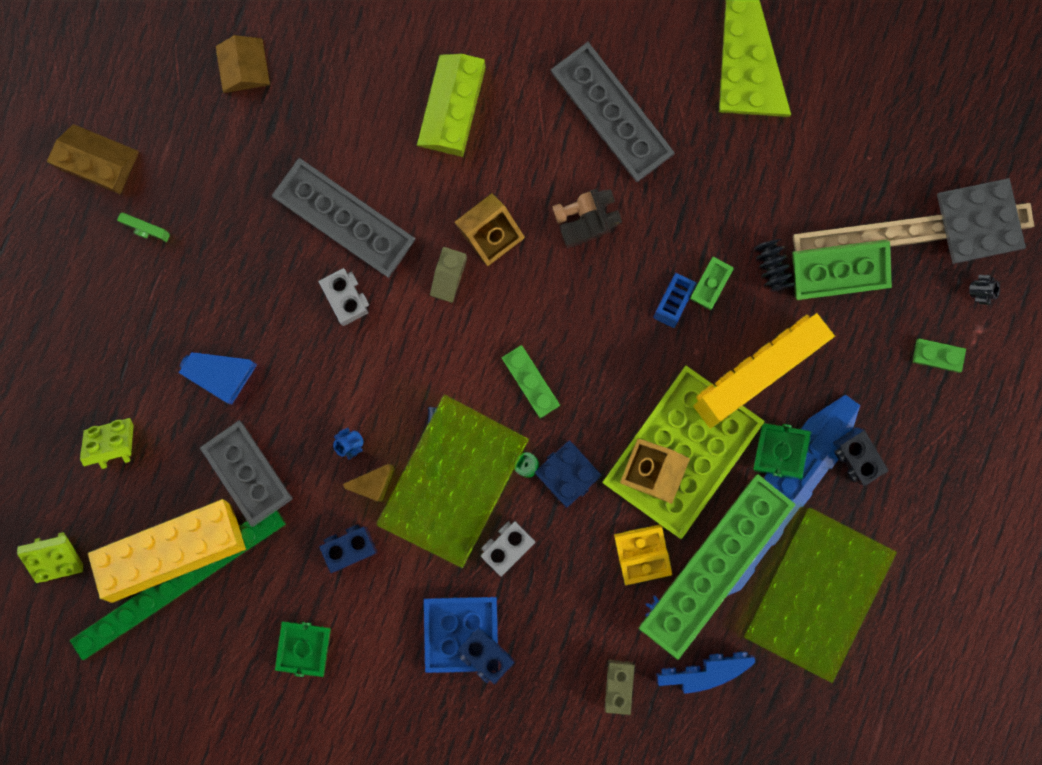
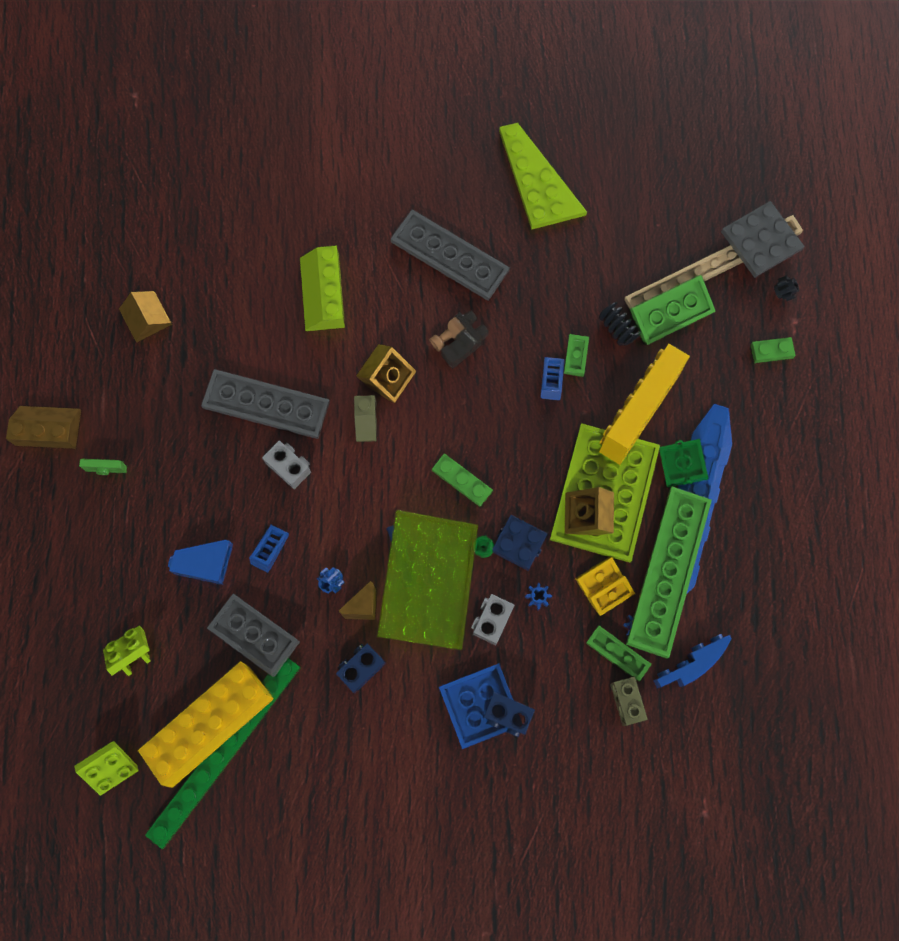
camera: 25 degrees left, 10 degrees down
(293, 395) = (258, 552): none -> blue slope
(303, 649) = (351, 767): green plate -> none
(572, 542) = (537, 590): none -> blue gear
(628, 633) = (618, 653): none -> bright green plate
(820, 594) = (759, 567): clear neon green plate -> none
(863, 453) = (747, 440): black brick -> none

